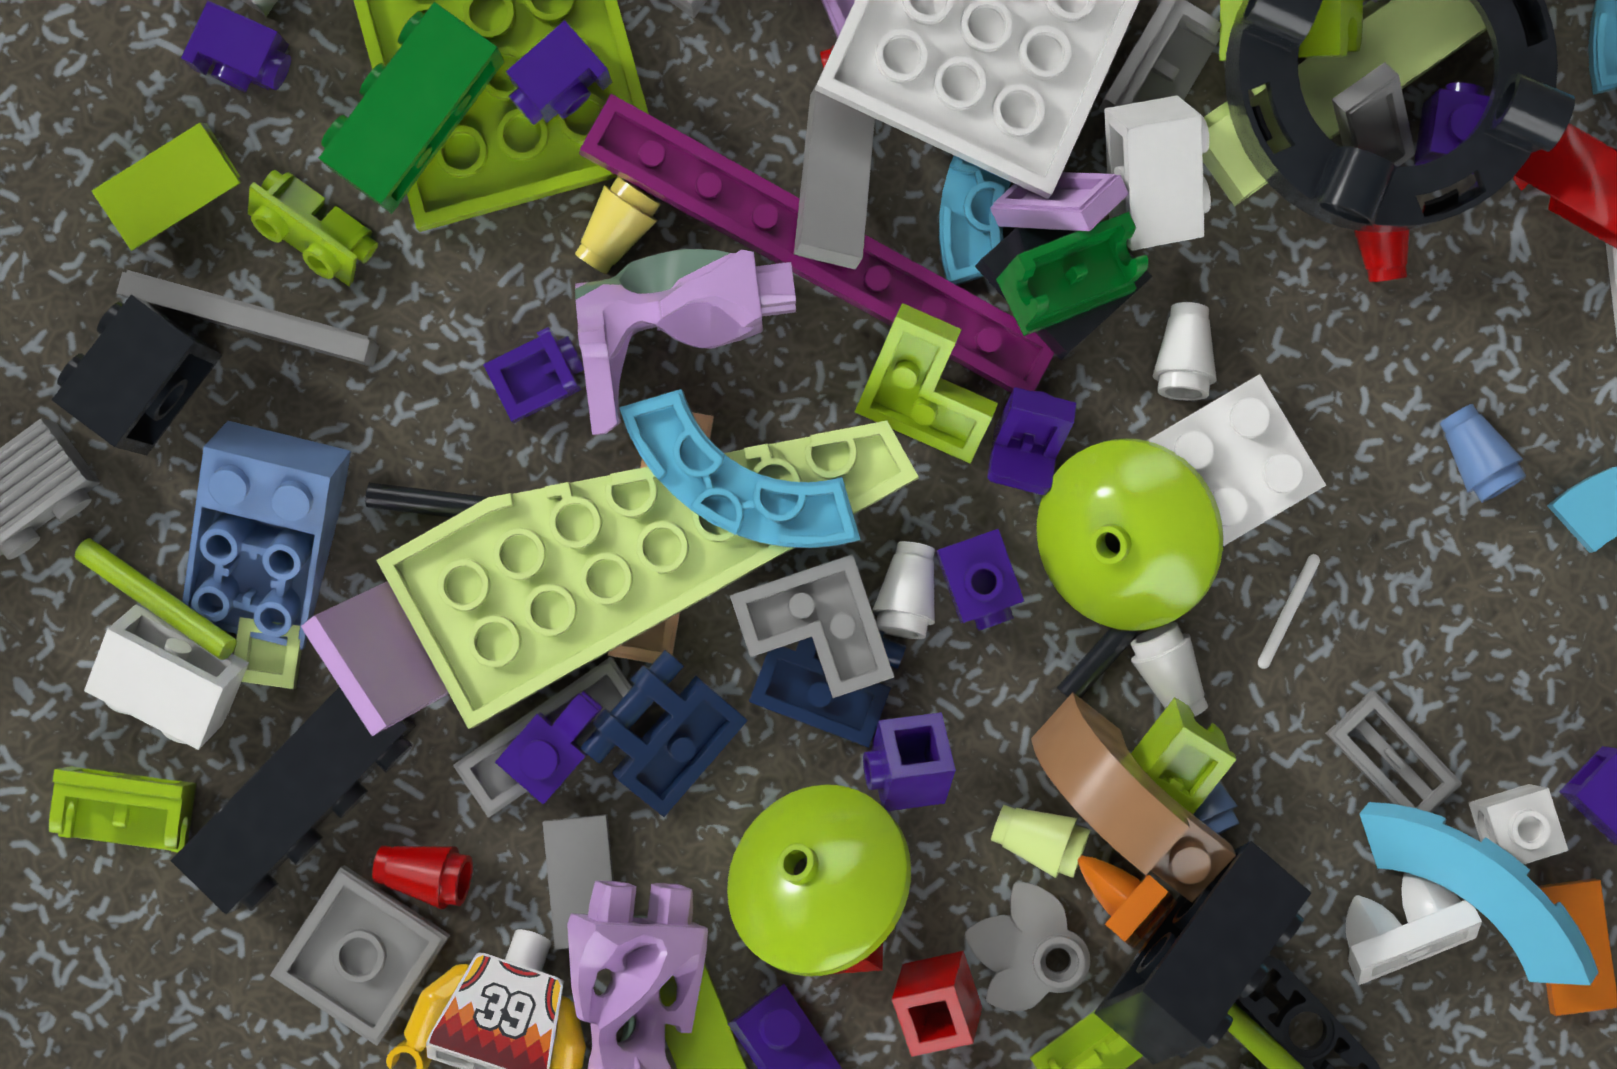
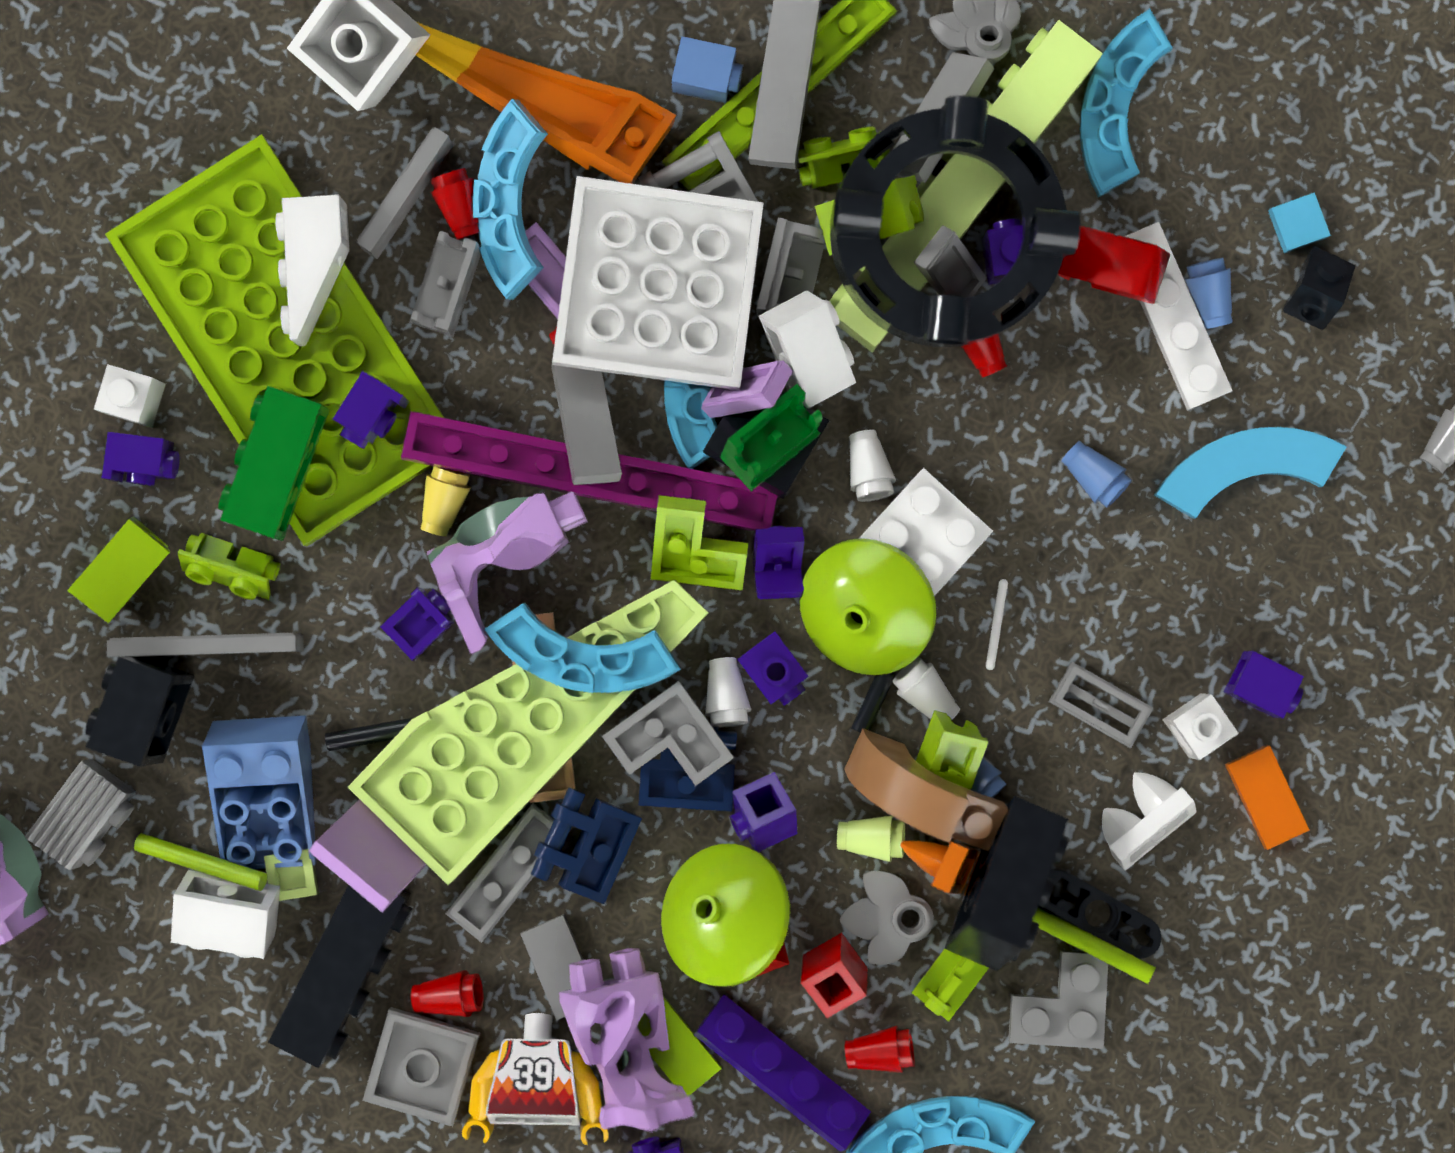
camera: 20 degrees left, 0 degrees up
(121, 808) = (222, 1015): lime hinge -> none
(546, 751) = (508, 884): dark purple plate -> none
(1488, 879) = (1190, 770): medium azure tile -> none

